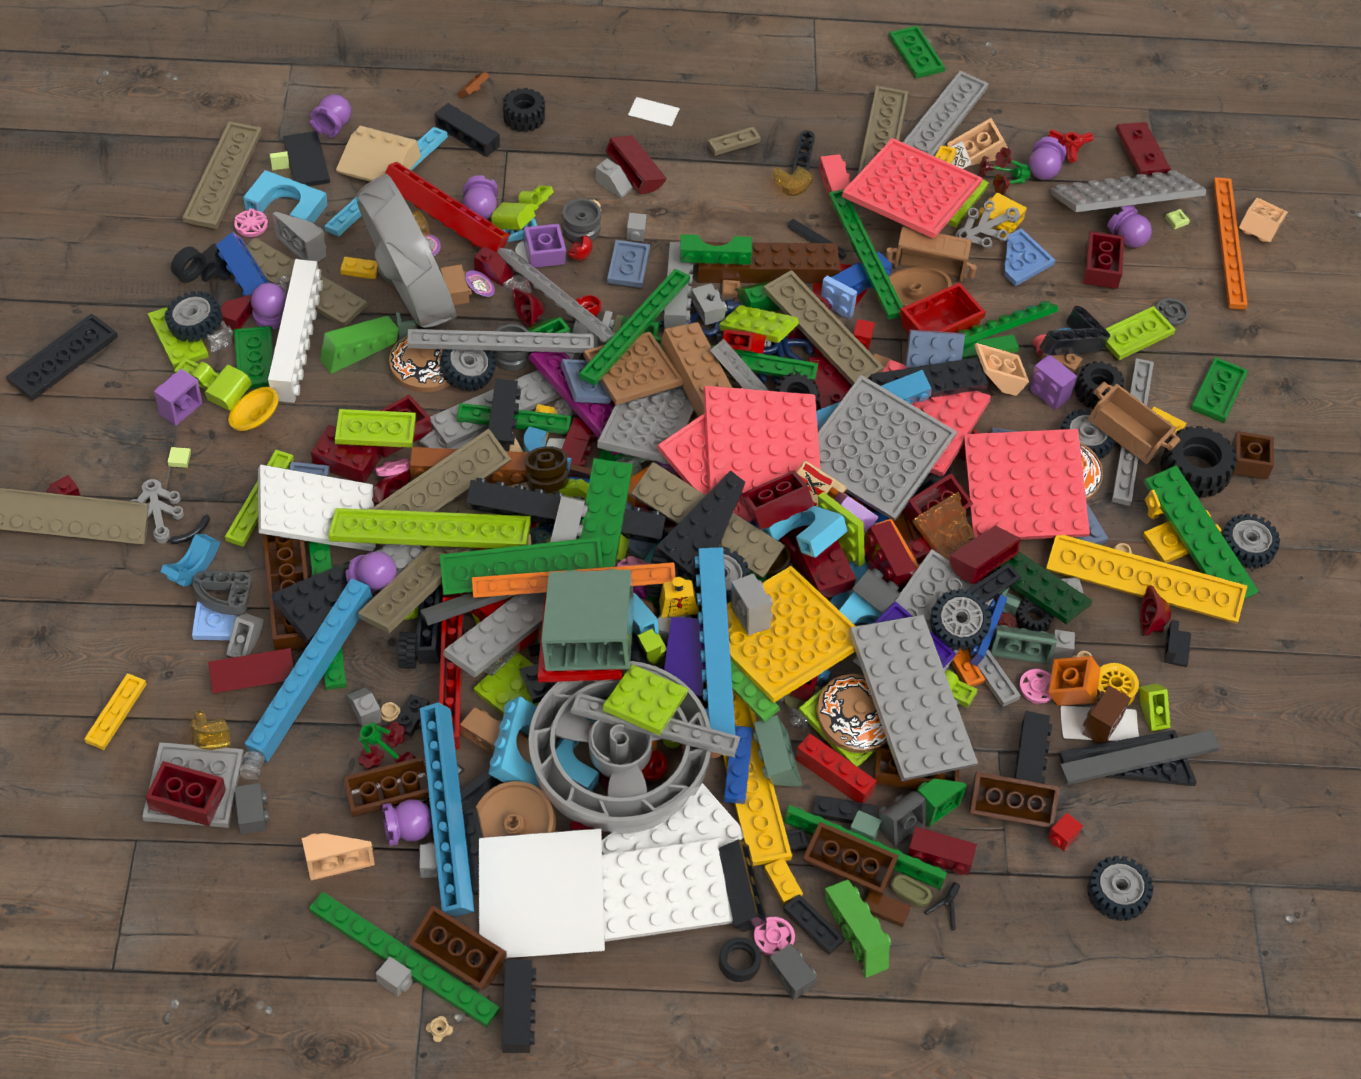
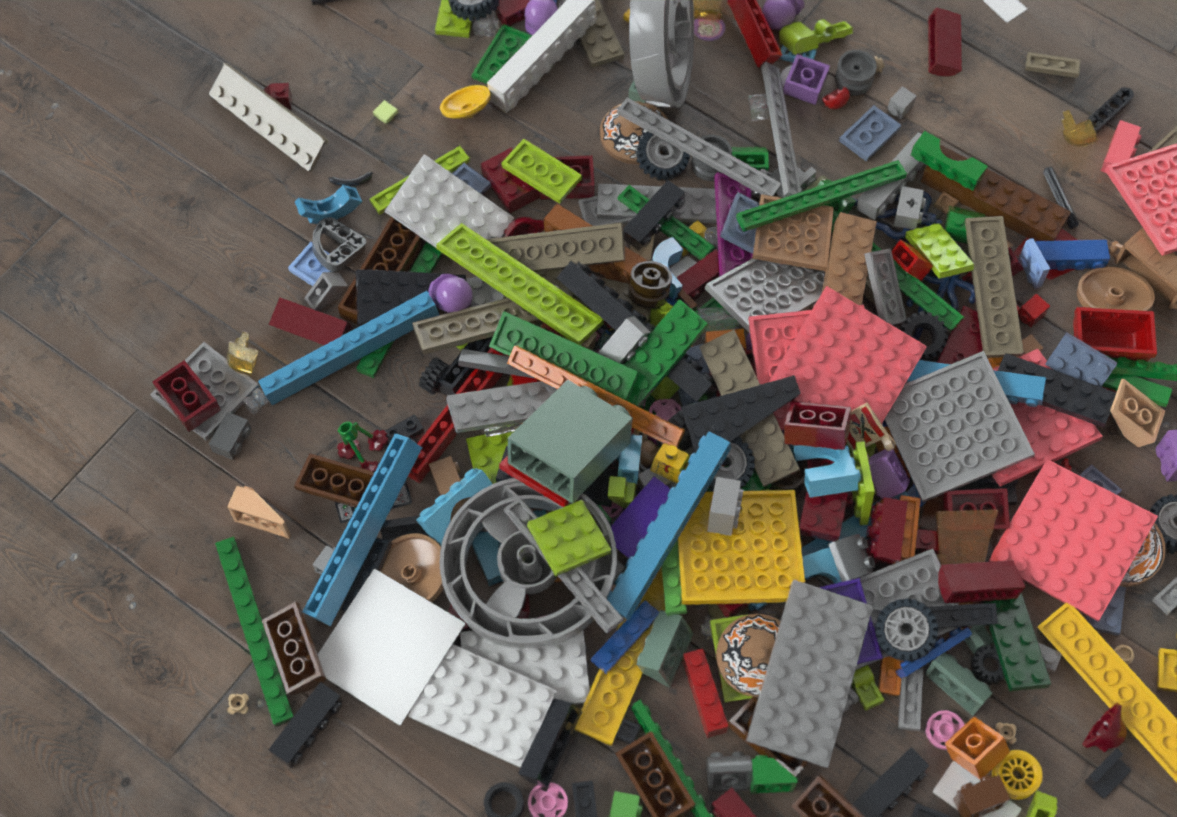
camera: 40 degrees right, 10 degrees up
(115, 711) = (192, 297): yellow plate -> none
(157, 506) = (339, 144): light grey plant -> none
(178, 397) = (415, 60): medium lavender brick -> none
(222, 388) = (458, 70): lime plate -> none
(357, 342) = (589, 86): bright green wedge -> none
(364, 706) = (371, 403): light grey slope -> none
(389, 712) = (388, 419): tan plate -> none
(392, 468) = (535, 212): bright pink wheel -> none
(394, 976) = (234, 640): light grey brick -> none
(407, 821) = (328, 518): medium lavender tile -> none
(456, 283) = (706, 76): medium nougat brick -> none
(480, 283) = (727, 85): sticker -> none
(492, 266) = (749, 75): dark red slope -> none
(528, 306) = (753, 128): dark red hat -> none
(590, 303) = (805, 154): red hair -> none
(612, 178) = (914, 47): light grey slope -> none
(656, 767) = (555, 595): red hair -> none
(782, 881) = (590, 760): yellow plate -> none
(841, 810) = (688, 733): black plate -> none
(866, 254) = (1089, 238): green plate -> none
(866, 825) = (691, 759): sand green panel -> none
(1008, 620) = (962, 653): clear red plate -> none
(1065, 644) = (994, 707): light grey brick -> none

